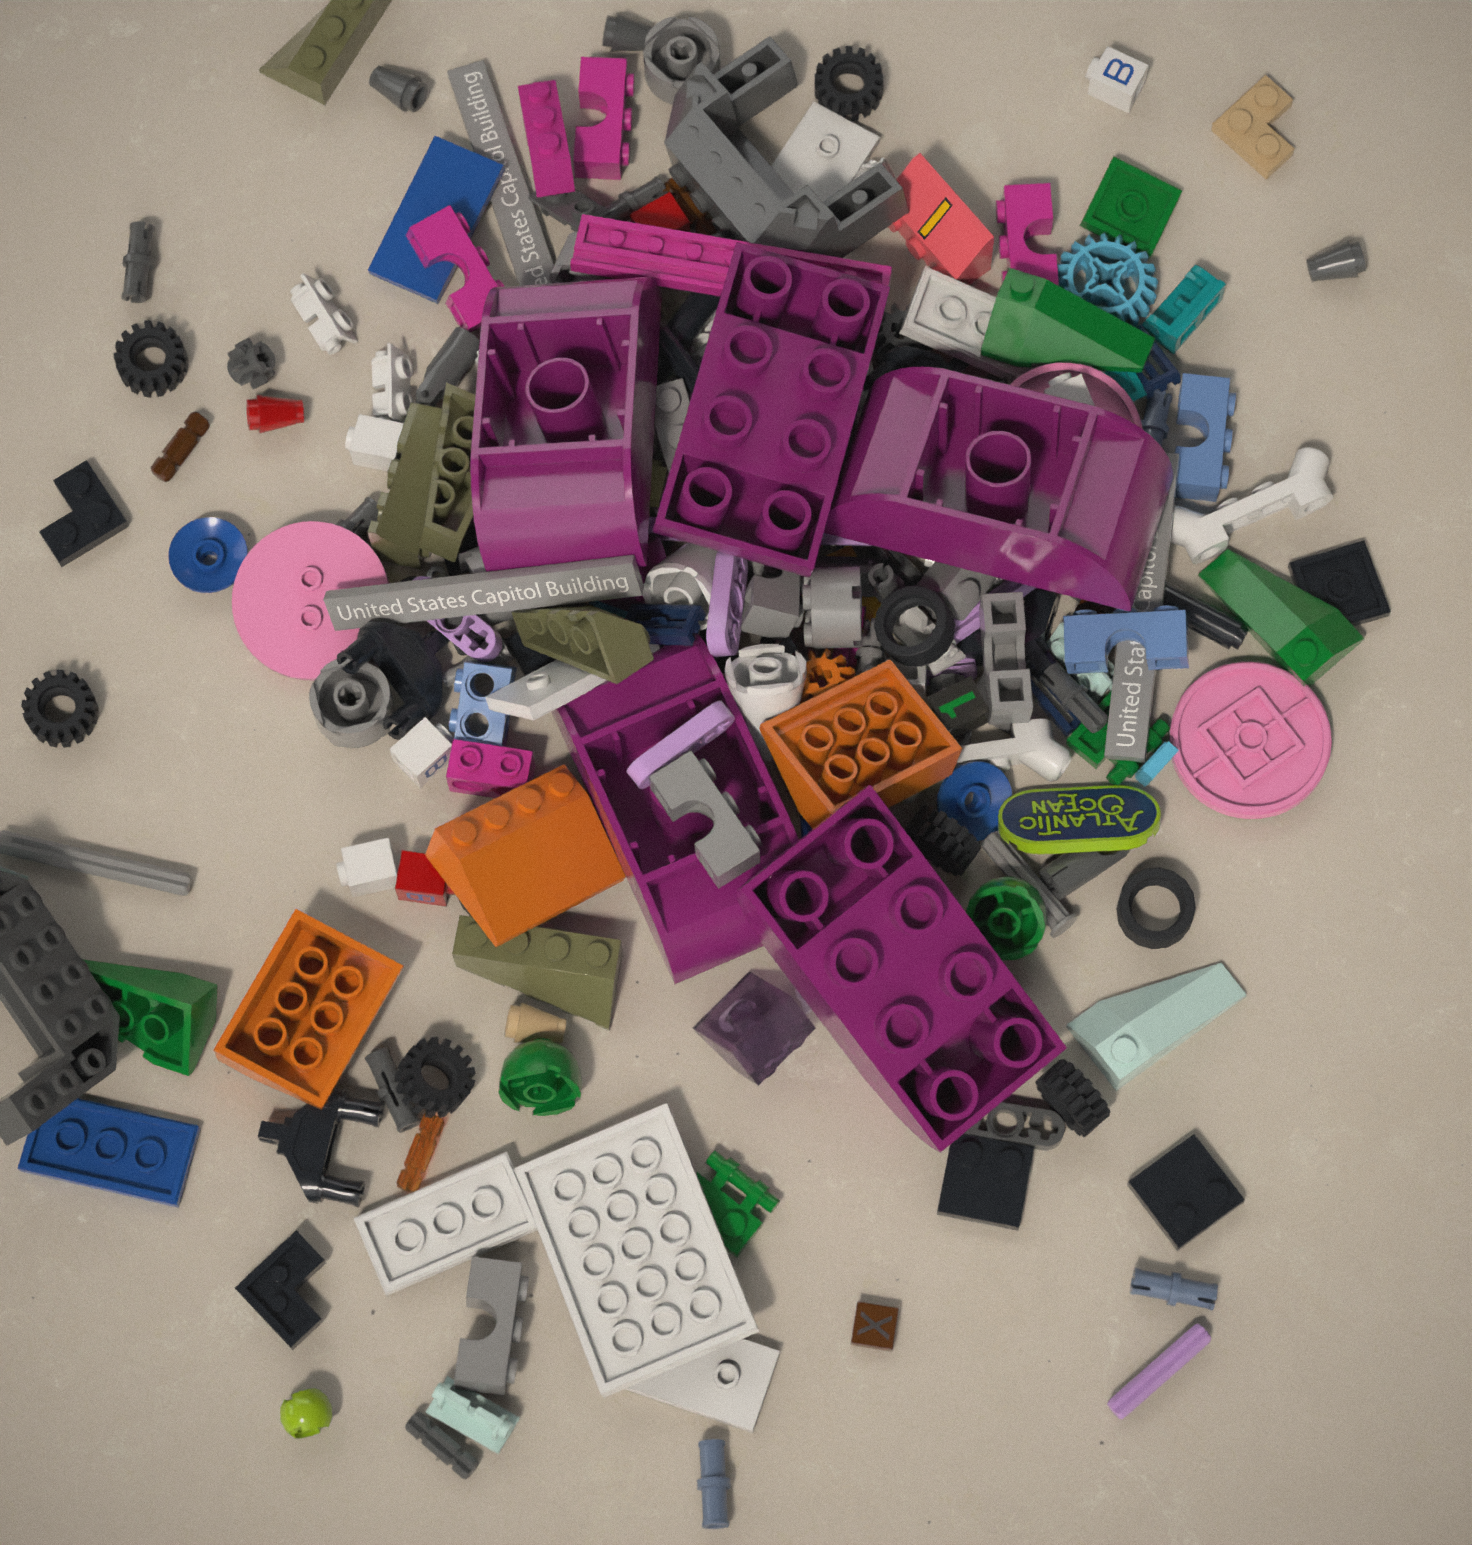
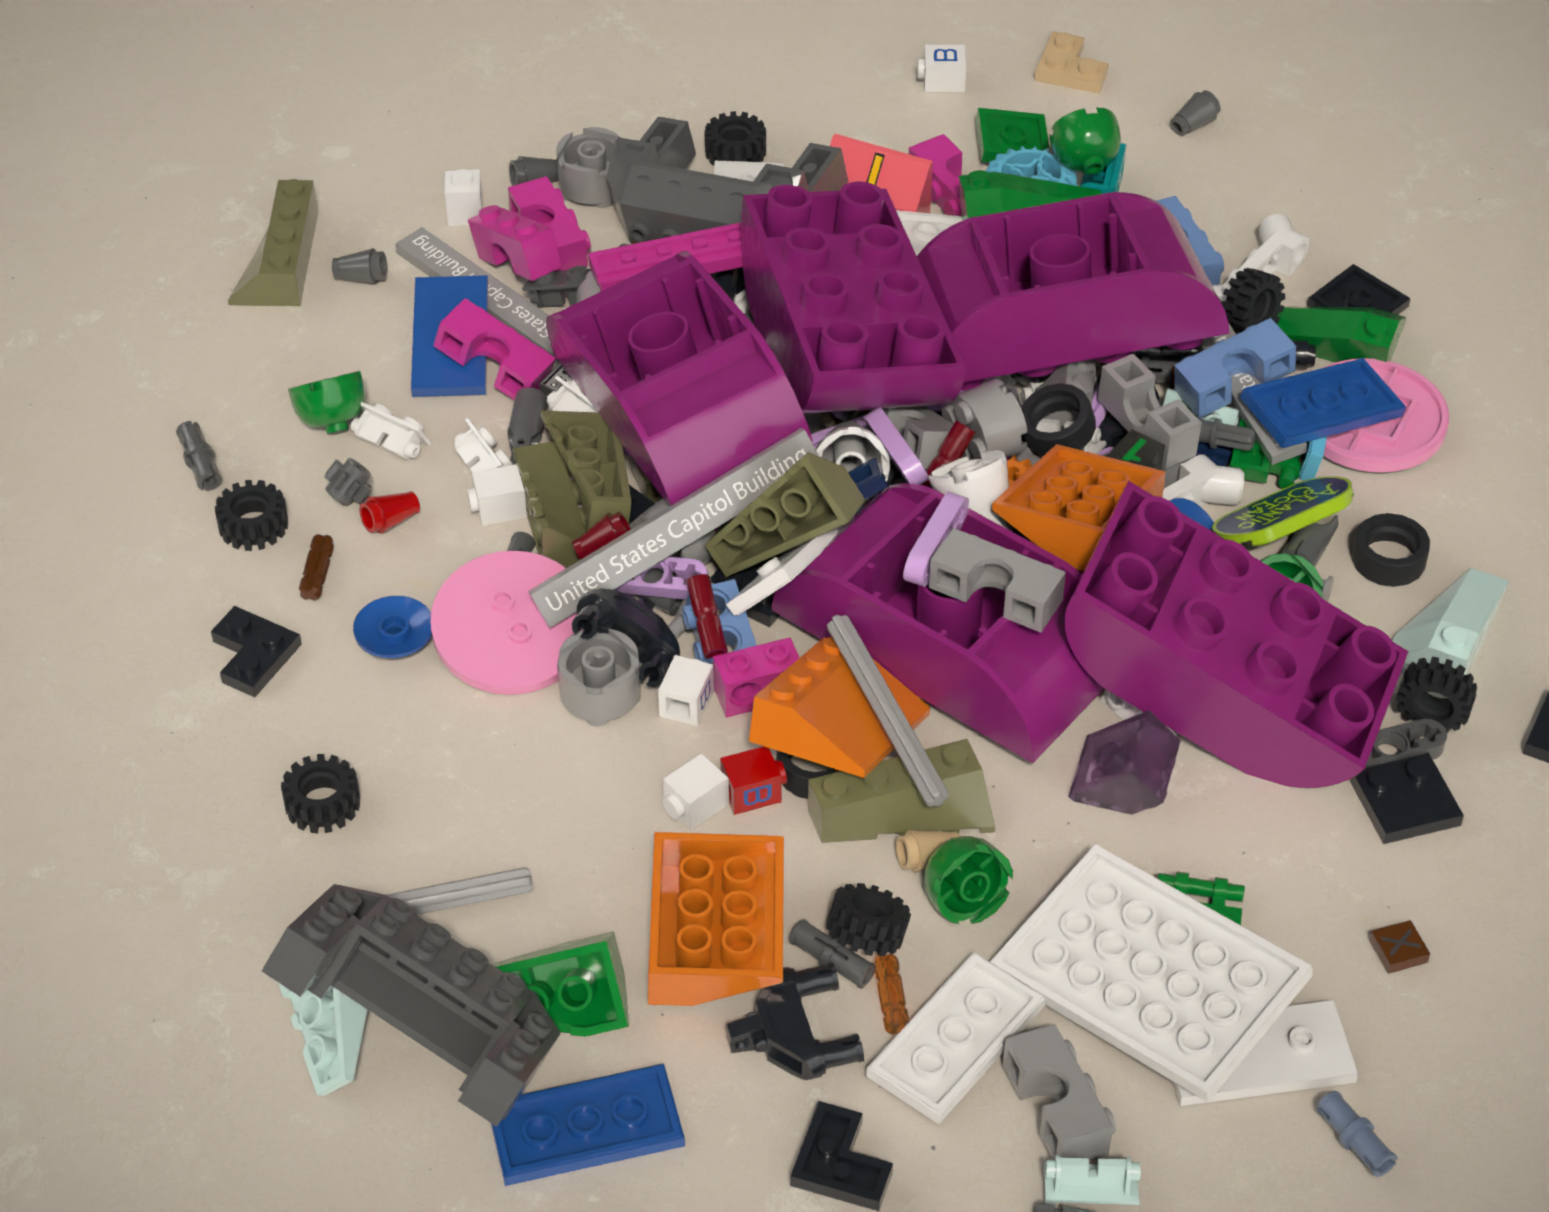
camera: 30 degrees left, 25 degrees down
(279, 255) = (329, 401): none -> green cylinder
(426, 561) = (601, 533): none -> dark red cone
(463, 704) = (705, 611): none -> dark red piece
(539, 42) = (462, 195): none -> white brick
(558, 883) = (888, 711): none -> light grey axle
(774, 630) = (951, 448): none -> dark red piece
(1173, 277) = (1086, 140): none -> green cylinder
(1193, 716) = (1322, 402): none -> blue tile
(1207, 561) = (1253, 299): none -> black tyre

